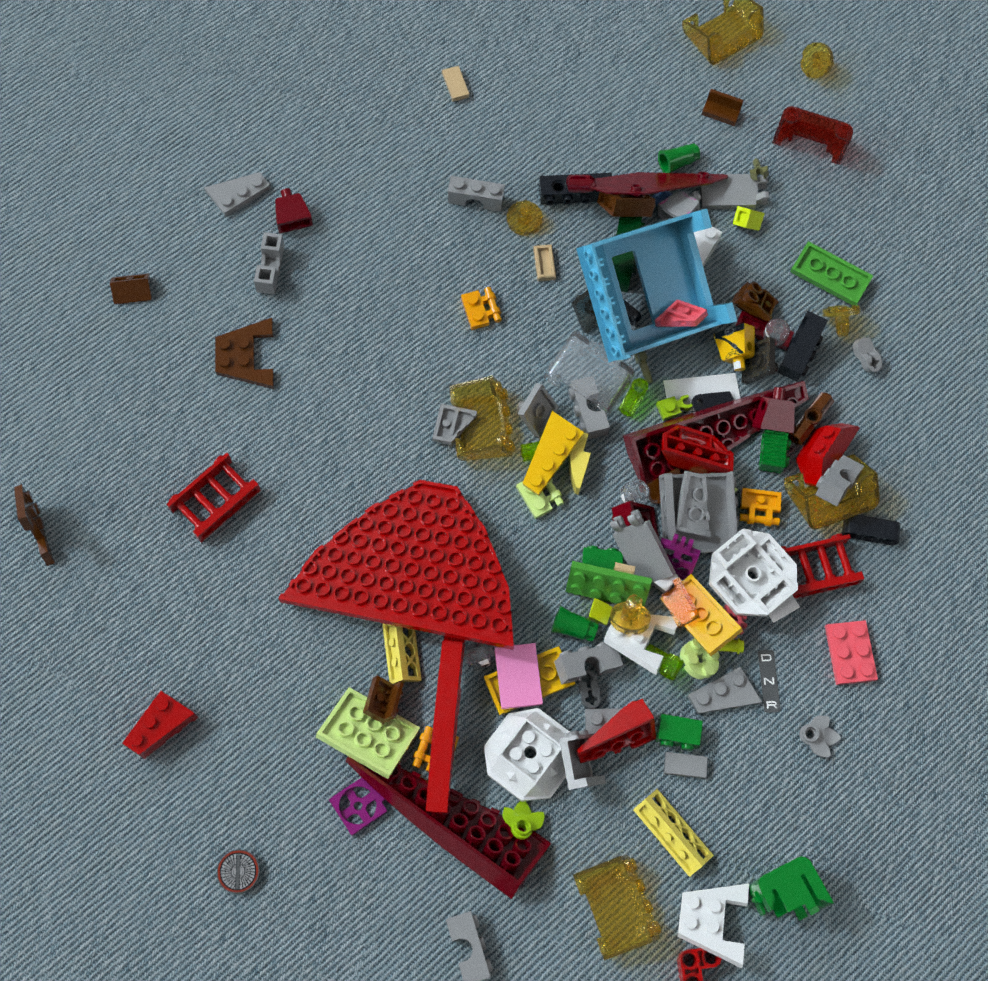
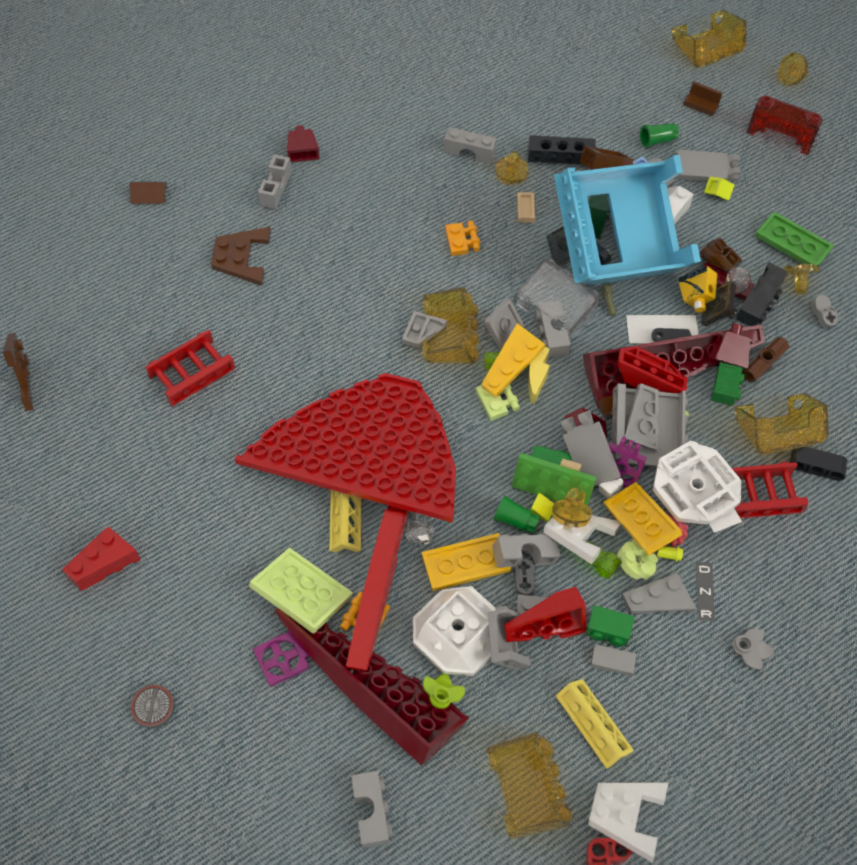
camera: 10 degrees right, 10 degrees down
(237, 192) = (256, 127): light grey wing -> none
(383, 699) = (320, 561): reddish brown bracket -> none
(455, 83) = (463, 61): tan tile -> none
(518, 676) = (455, 554): bright pink tile -> none
(633, 398) = (596, 324): clear neon green piece -> none
(635, 491) = (590, 401): clear head -> none
(640, 182) = (570, 142): dark red wing -> none
(670, 408) = (632, 337): lime plate -> none
(680, 604) = (623, 506): clear orange panel -> none
(681, 315) = (648, 255): coral wing -> none
(758, 170) = (731, 150): olive bar -> none
(760, 501) = (711, 426): light orange plate -> none
(789, 889) = (706, 784): green piece -> none
(823, 448) = (776, 388): red wedge -> none
(838, 479) = (788, 408): light grey arch -> none
(851, 652) = (790, 574): coral plate -> none

